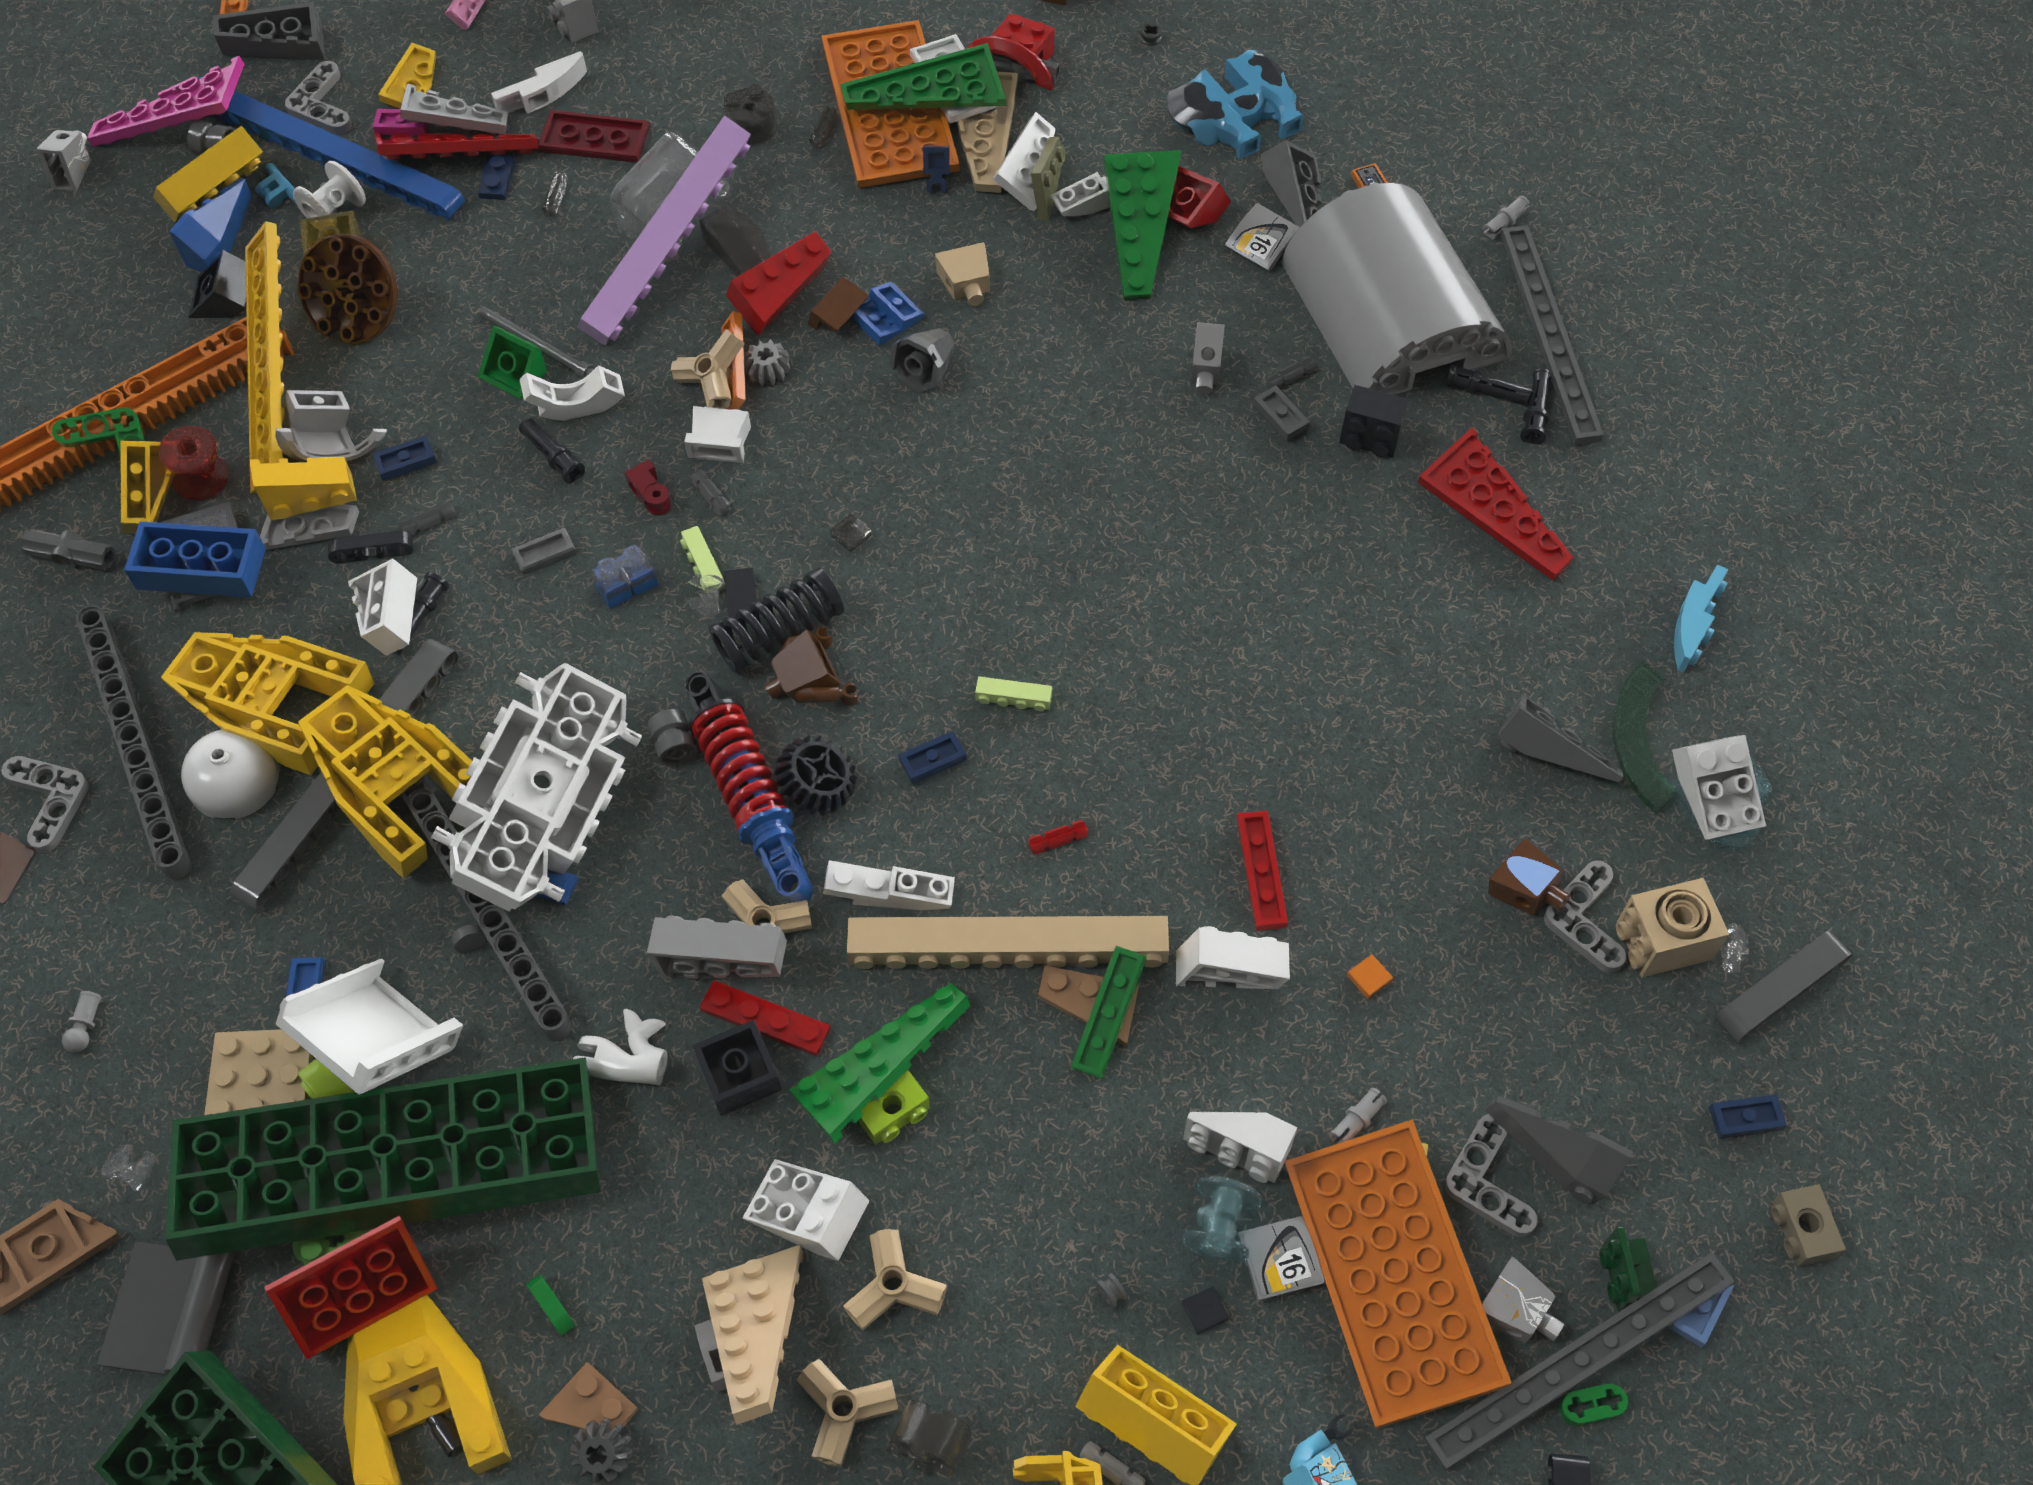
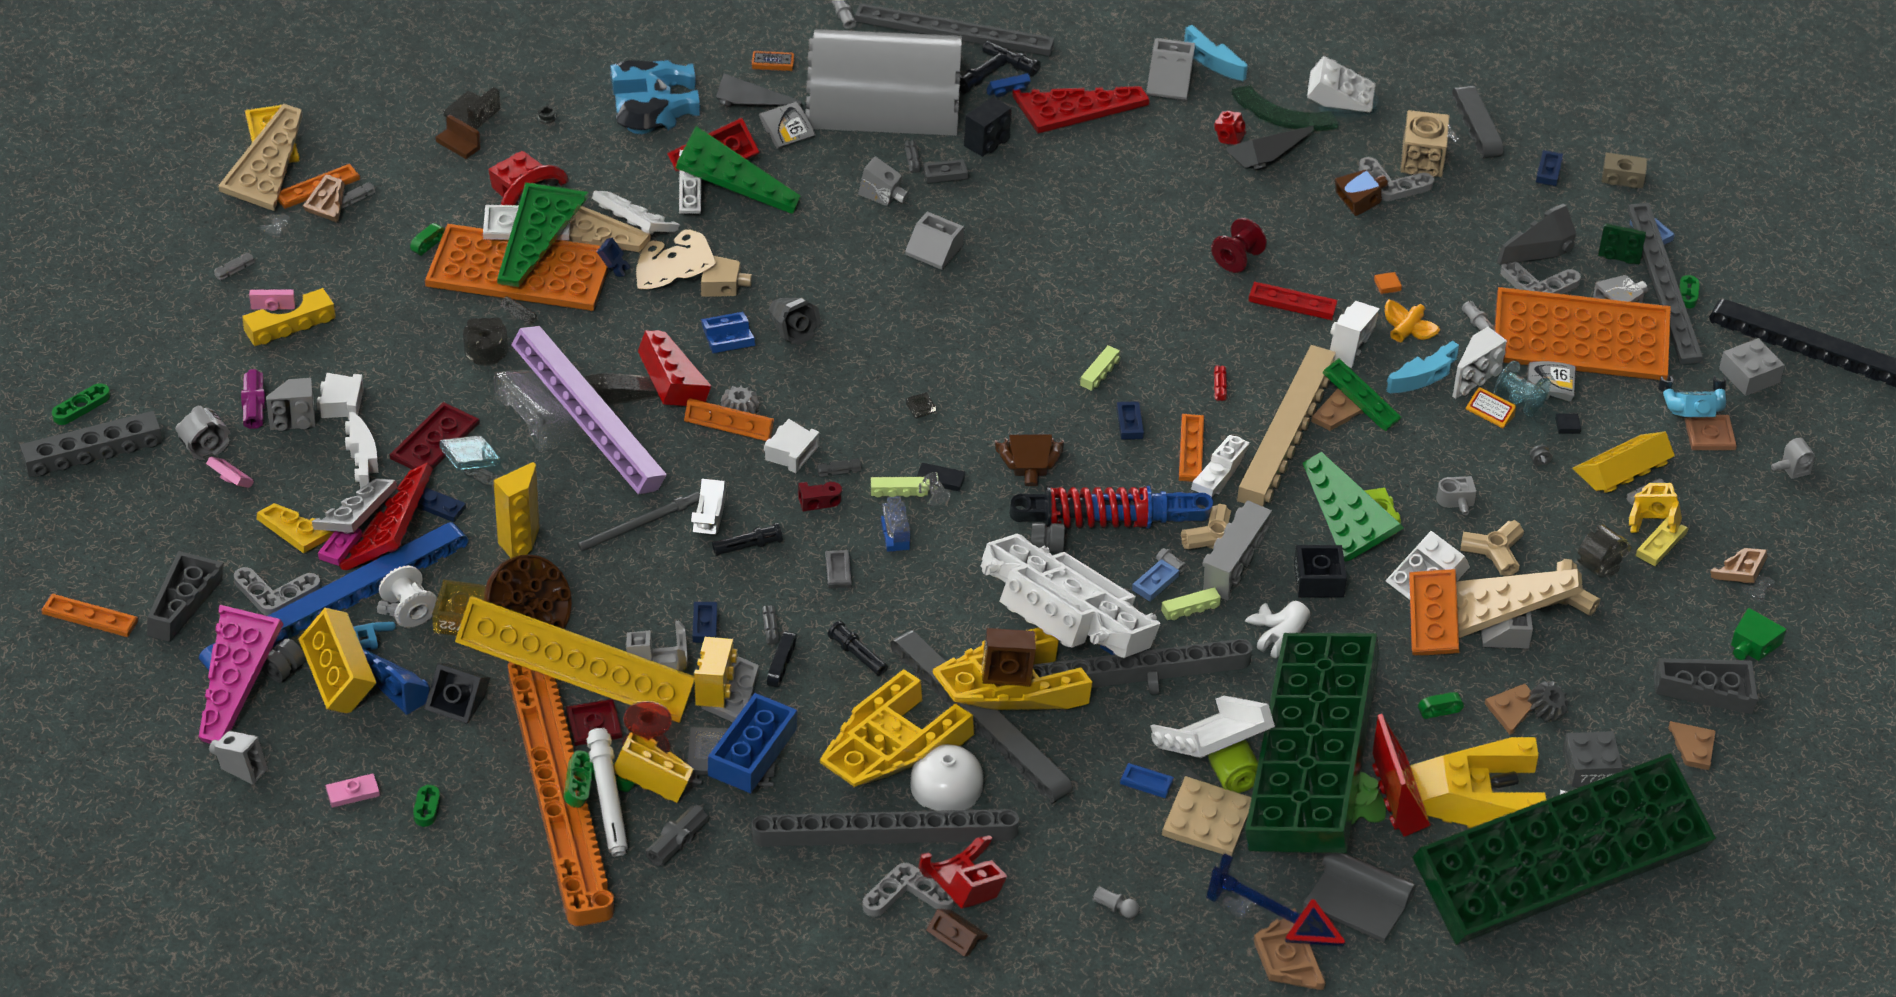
camera: 70 degrees left, 15 degrees down
(56, 327) = (421, 805): none -> green beam
(62, 263) = (352, 790): none -> bright pink plate
(65, 838) = (962, 879): none -> red piece
(86, 1262) = (1309, 927): none -> clear blue piece
(133, 427) = (602, 758): none -> white cylinder
(223, 416) = (593, 716): none -> dark red tile
(367, 749) = (1008, 657): none -> reddish brown brick
(385, 605) = (856, 649): white wedge -> none
(461, 225) = (517, 510): none -> yellow slope
(508, 360) = (651, 537): green slope -> none
(575, 167) = (469, 452): none -> clear light blue tile
(613, 41) = (340, 395): none -> white hips
(626, 933) = (1191, 603): none -> yellowish green piece
(654, 881) = (1155, 580): none -> medium blue plate
(697, 885) = (1167, 556): none -> light grey pin
(710, 370) = (731, 414): tan piece -> none
(716, 1239) = (1434, 612): none -> orange tile
(722, 631) = (972, 463): black piece -> none
(771, 1019) = (1281, 557): red plate -> none
(797, 774) = (1120, 471): black gear -> none
(837, 305) = (709, 351): reddish brown panel -> none
(887, 13) = (427, 239): none -> green beam
(922, 843) = (1191, 447): none -> orange tile
(955, 220) = (672, 268): none -> tan piece
(980, 1206) = (1456, 493): none -> light grey piece
(1046, 176) = (657, 202): olive wing -> none
(1139, 444) = (935, 240): none -> light grey slope
(1178, 1192) = (1491, 407): none -> slope
(1195, 1073) = (1421, 372): none -> medium azure slope
(1300, 1028) = (1409, 322): none -> light orange plant
(1318, 767) = (1231, 252): none -> dark red hose
(1487, 427) = (1001, 87): none -> blue plate
(1553, 676) = (1230, 127): none -> red brick
(1628, 578) = (1170, 69): none -> light grey slope

